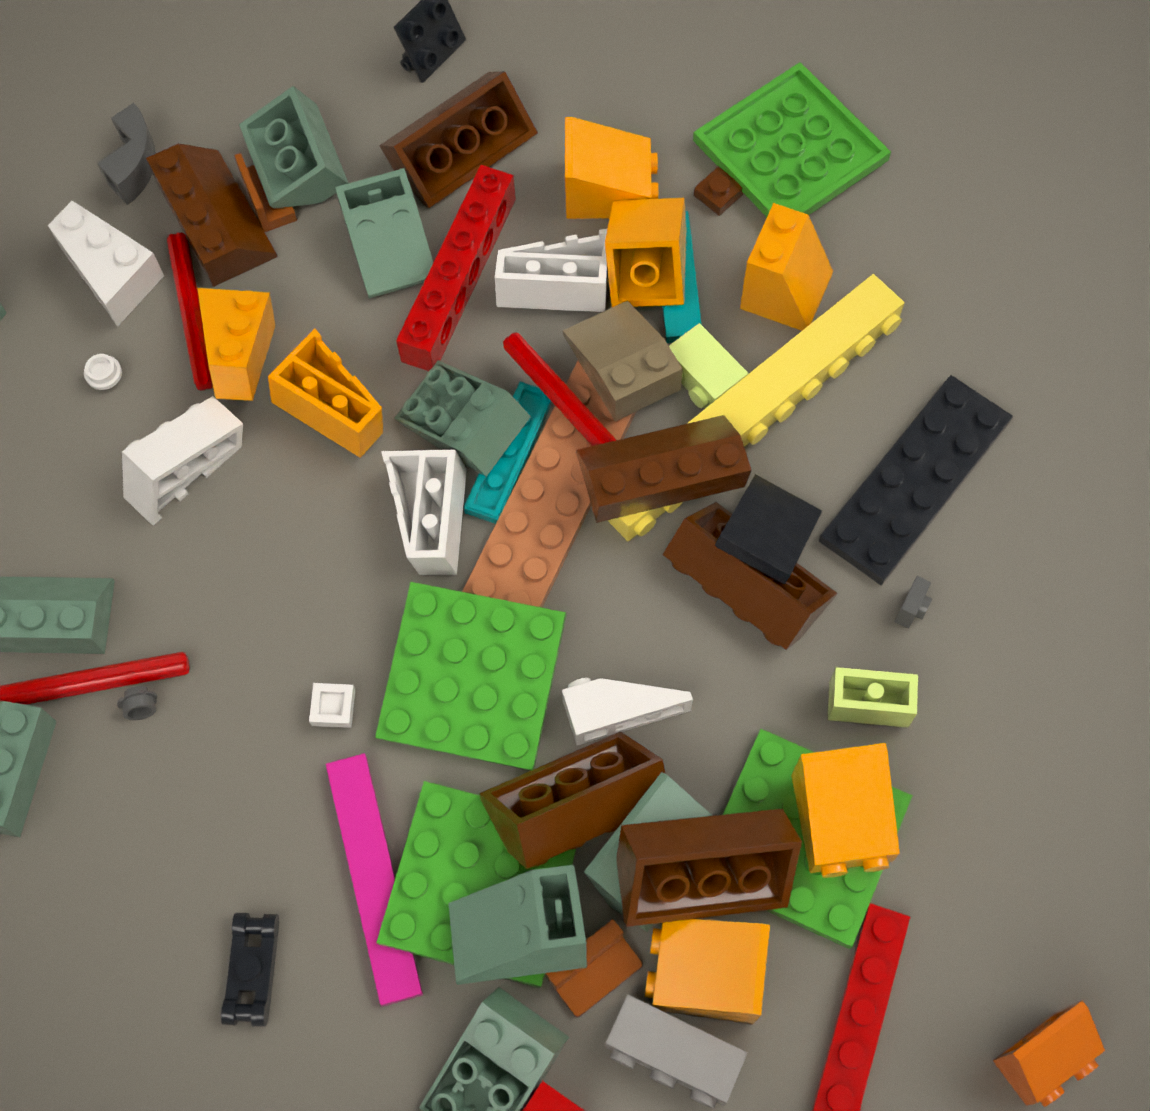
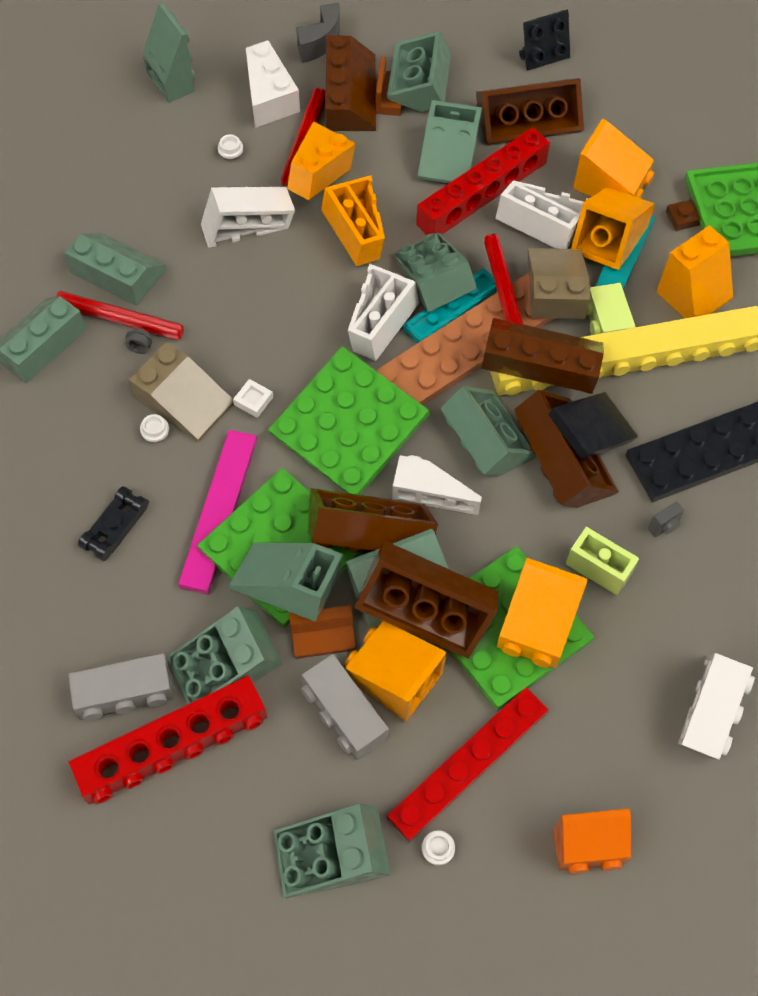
camera: 25 degrees right, 5 degrees down
(228, 812) = (154, 428): none -> white plate
(235, 746) = (180, 392): none -> slope
(645, 597) = (487, 430): none -> sand green slope
(1095, 809) = (716, 706): none -> white wedge

